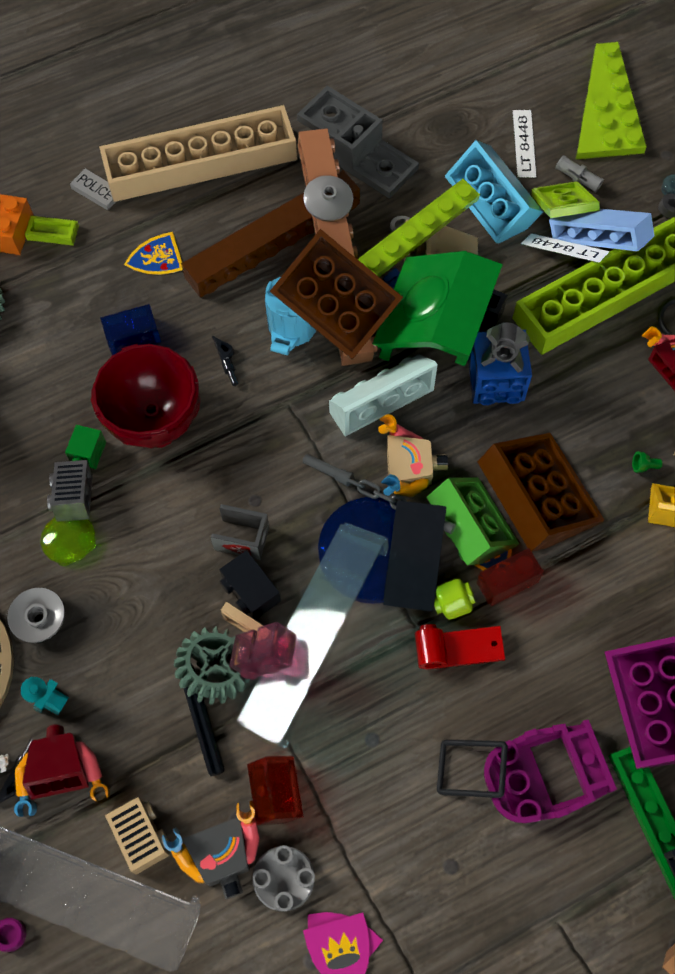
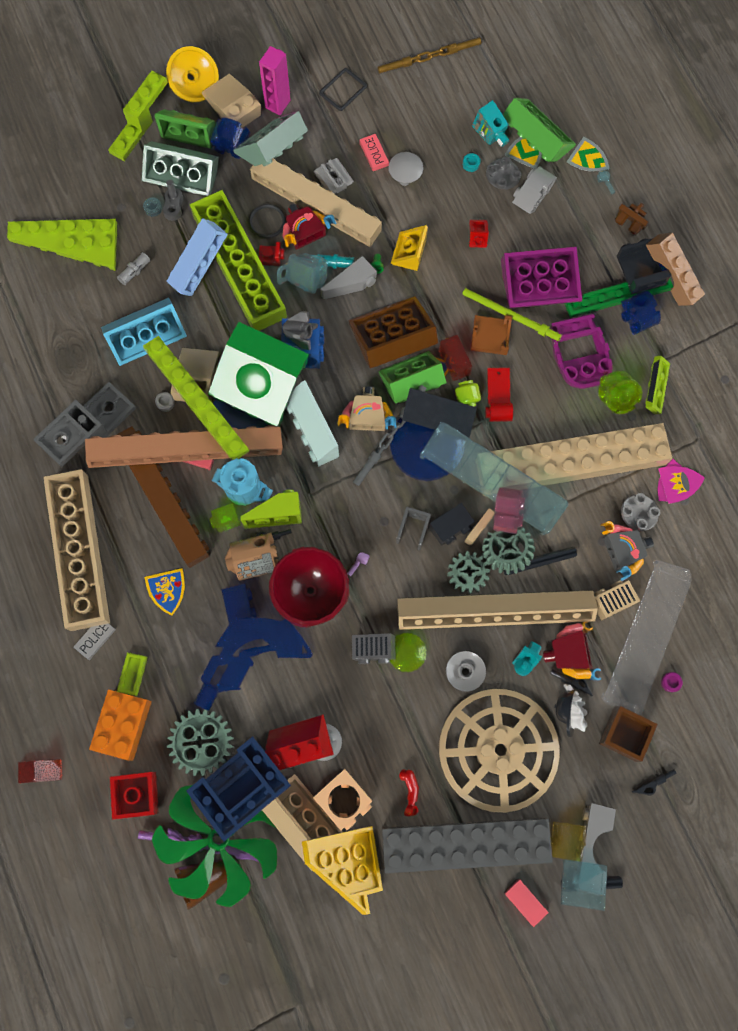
camera: 90 degrees left, 10 degrees up
(86, 445) = (337, 639): green brick -> none
(90, 327) = (278, 634): none -> clear blue piece
(122, 659) = (496, 610): none -> tan brick
(167, 612) = (477, 571): none -> sand green gear
(193, 334) = (252, 556): none -> medium nougat cylinder
(199, 472) = (361, 558): none -> lavender hand
(247, 305) = (224, 518): none -> clear neon green brick
(260, 367) = (276, 511): none -> lime slope
(275, 790) = (590, 512): clear red brick -> none
(325, 206) = (149, 452): light grey dish -> none
(336, 294) = (246, 441): reddish brown slope -> none
(369, 782) = (591, 455): none -> tan brick
(481, 833) = (619, 392): none -> clear neon green brick
(490, 794) = (592, 398): black piece -> none
(508, 907) = (657, 385): none -> lime plate
(524, 143) = (95, 304): white sticker -> none
(557, 631) = (491, 334): none -> dark orange piece
(565, 199) = (163, 280): lime tile -> none
(565, 247) = (203, 287): white sticker -> none
(574, 703) = (543, 329): none -> lime bar
(613, 366) = (304, 271): none -> clear light blue piece
(614, 431) = (351, 280): none -> light grey slope
(631, 326) = (271, 254): none -> red bracket
(631, 869) = (640, 312): none -> clear blue brick
(638, 407) = (338, 261): none -> teal pin

